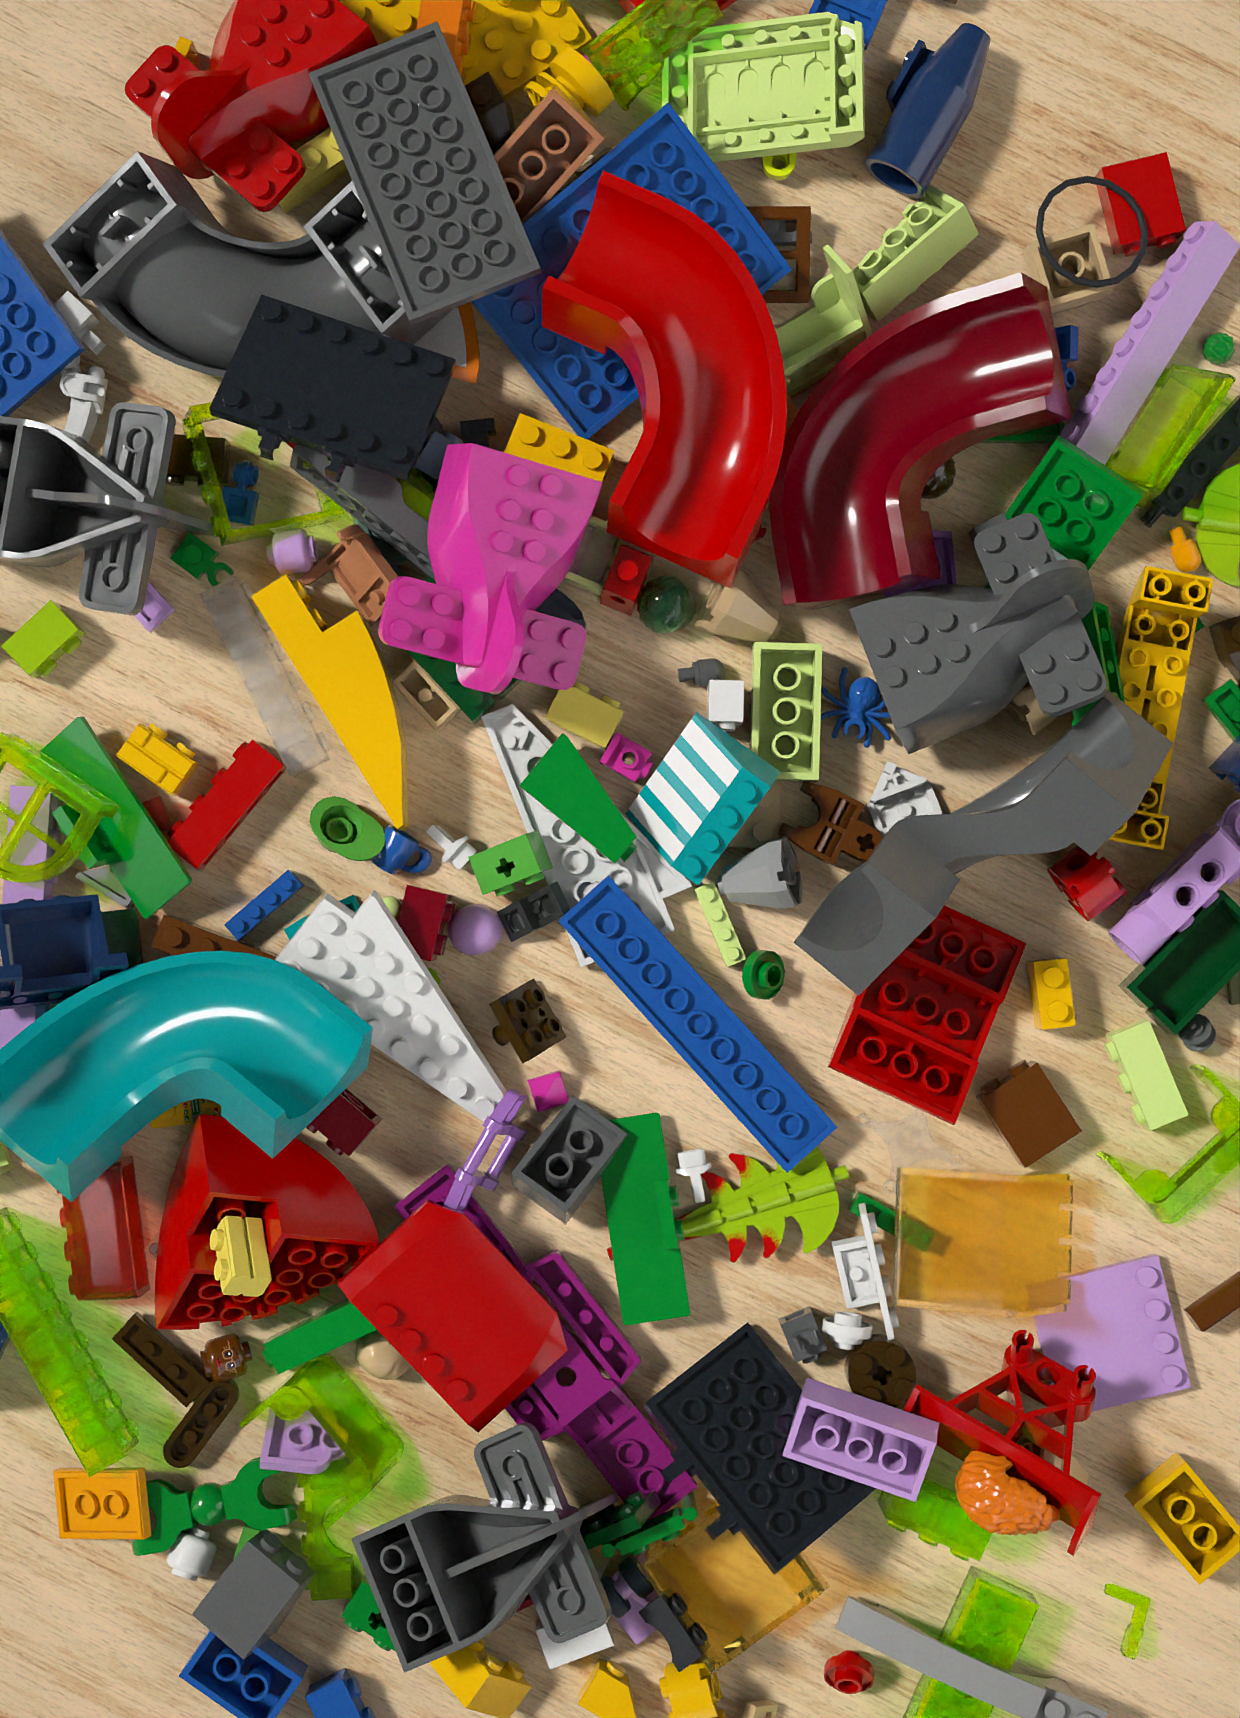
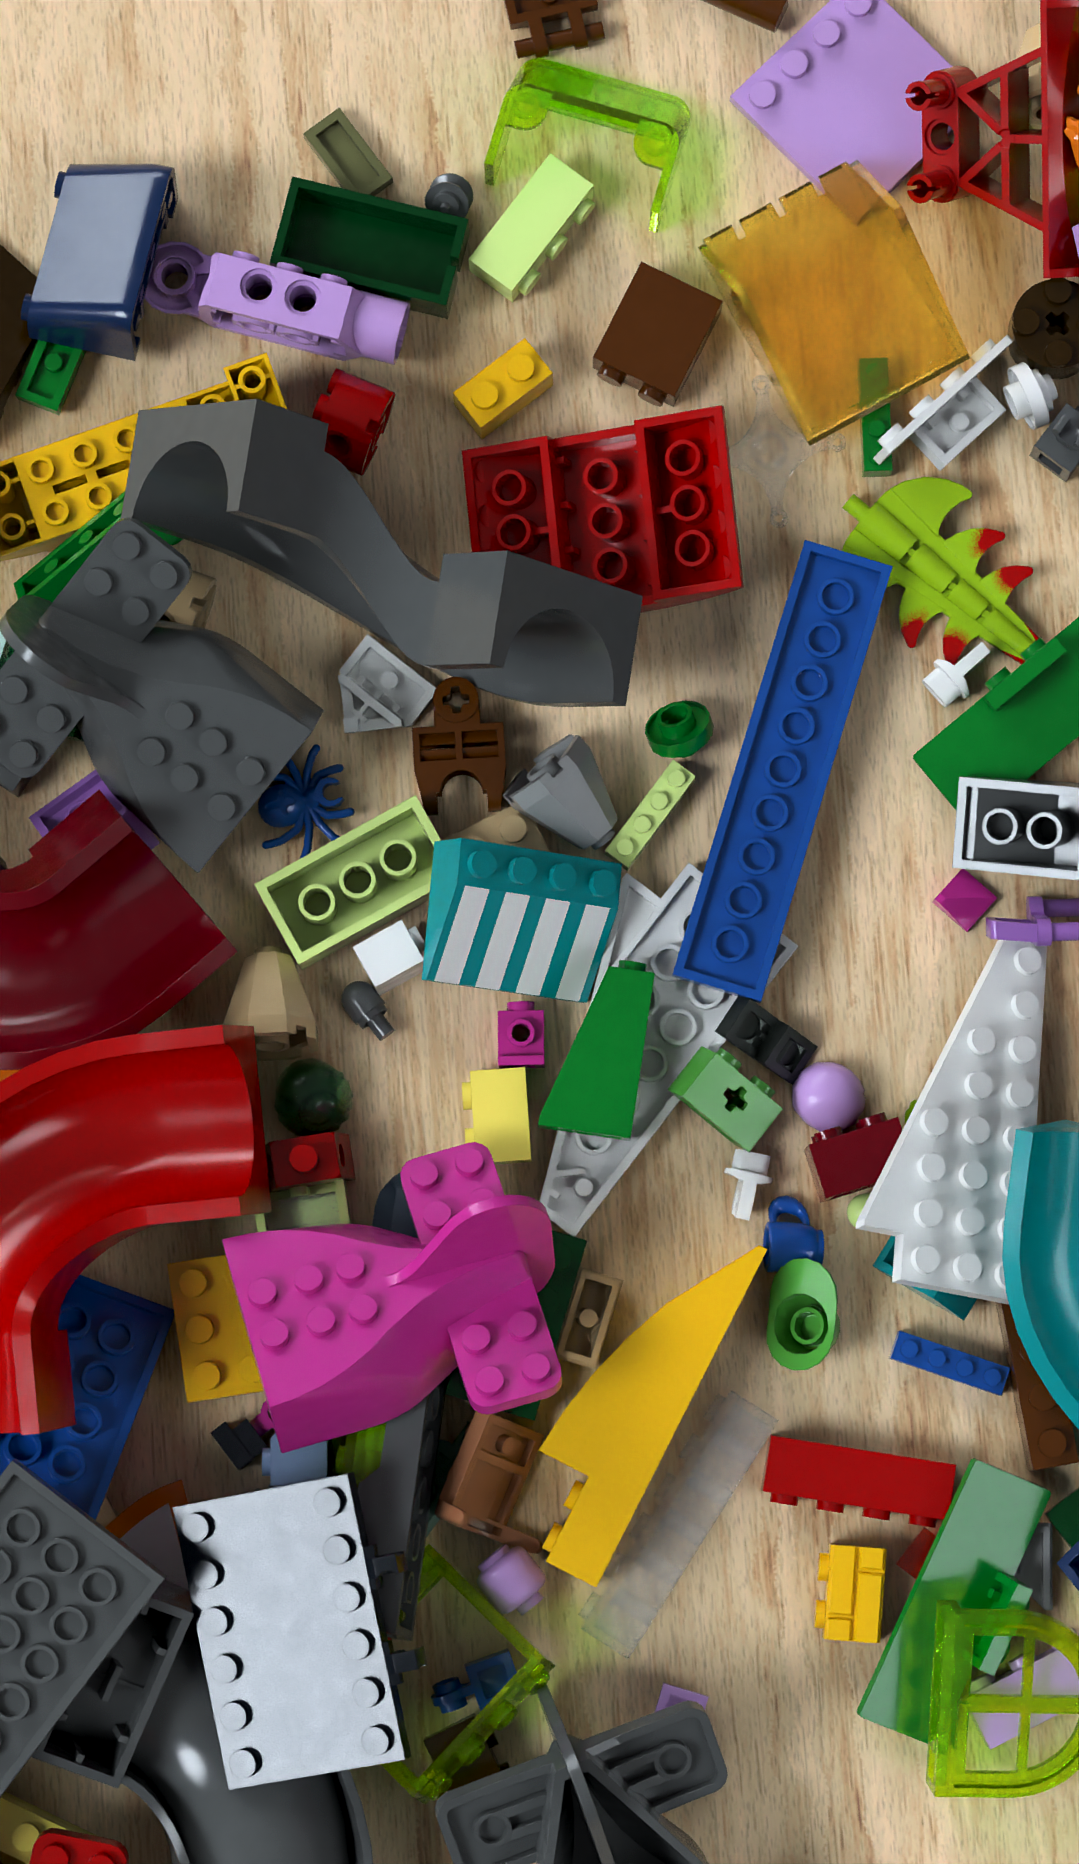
camera: 115 degrees left, 5 degrees down
(44, 640) = (793, 1817): lime brick -> none
(198, 559) = (585, 1693): green plate -> none
(526, 1021) = (900, 970): dark brown plate -> none

